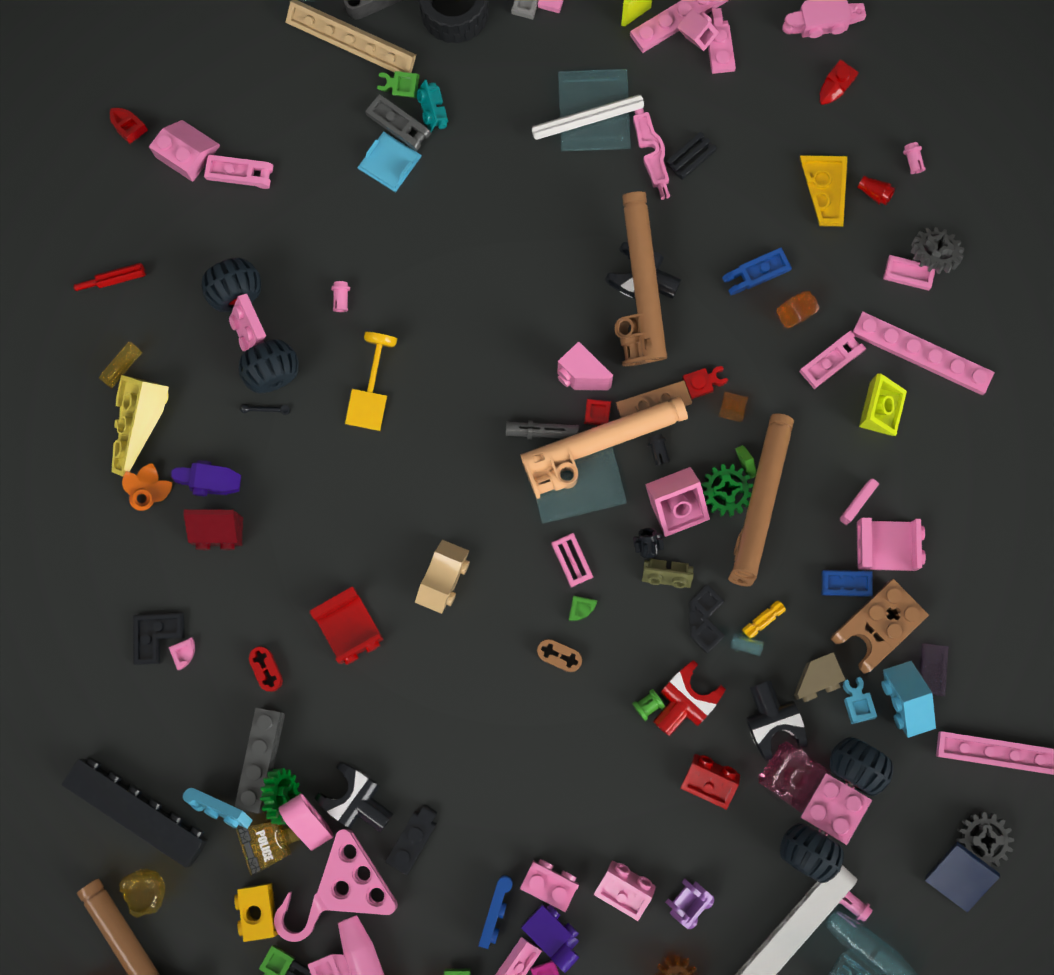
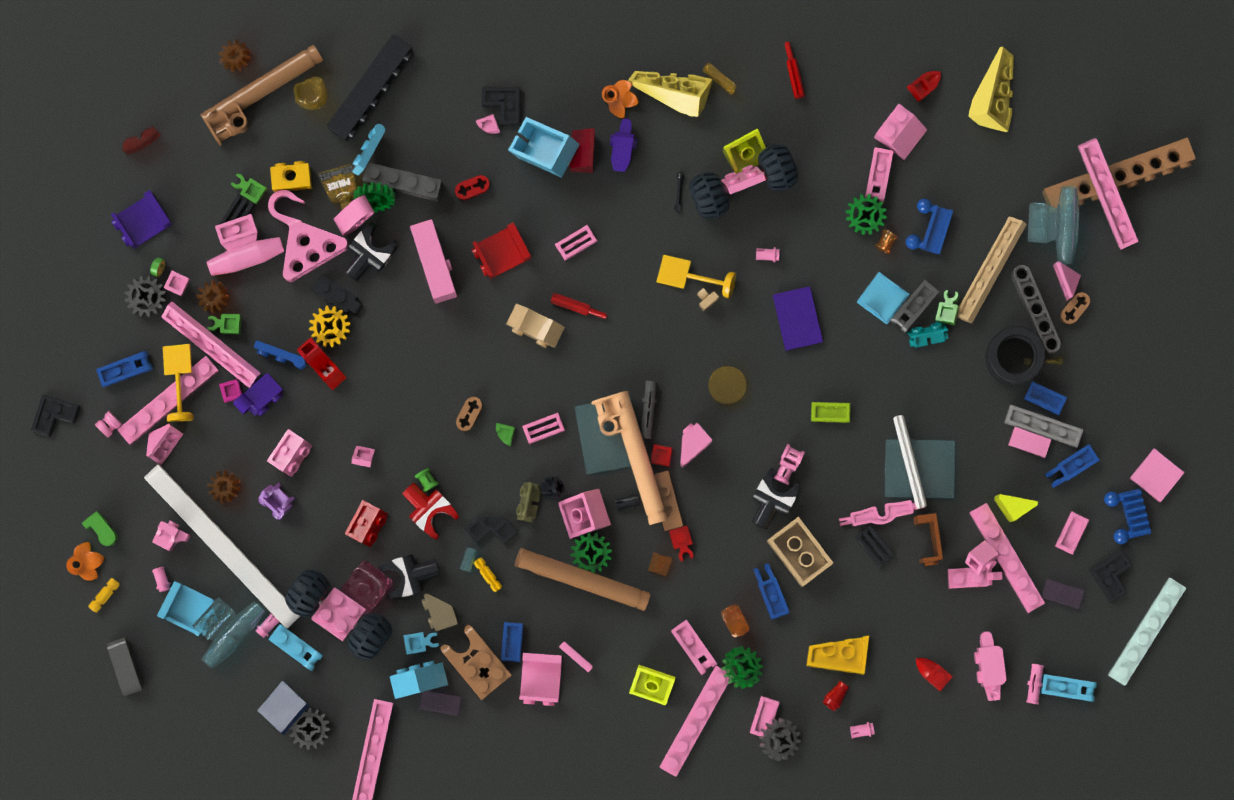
camera: 90 degrees right, 5 degrees up
(147, 48) = (991, 100): none -> light yellow wedge
(210, 575) = (546, 147): none -> medium azure piece
(212, 329) = (744, 151): none -> neon yellow slope
(288, 172) = (873, 208): none -> green gear
(304, 102) = (936, 228): none -> blue gear
(320, 158) = (886, 241): none -> clear orange bush
(344, 549) = (562, 251): none -> bright pink tile
(363, 711) = (433, 261): none -> bright pink brick
(399, 365) = (707, 300): none -> tan tile
(414, 528) = (576, 306): none -> red axle
(418, 258) = (797, 318): none -> dark purple tile
(448, 856) = (323, 321): none -> yellow gear
(504, 854) = (321, 363): none -> red brick
(505, 337) = (727, 385): none -> clear yellow tile
(532, 213) = (830, 412): none -> lime plate
(549, 885) = (297, 396): bright pink bracket -> none
(598, 258) = (788, 462): none -> bright pink connector
(623, 790) = (363, 456): none -> bright pink plate
(646, 338) = (722, 494): medium nougat piece -> none
(678, 82) = (932, 520): none -> dark orange panel
(707, 237) = (800, 552): none -> tan brick
(747, 461) = (614, 570): bright green tile -> none
(853, 299) = (742, 667): none -> green gear
(879, 866) = (295, 647): none -> medium azure plate

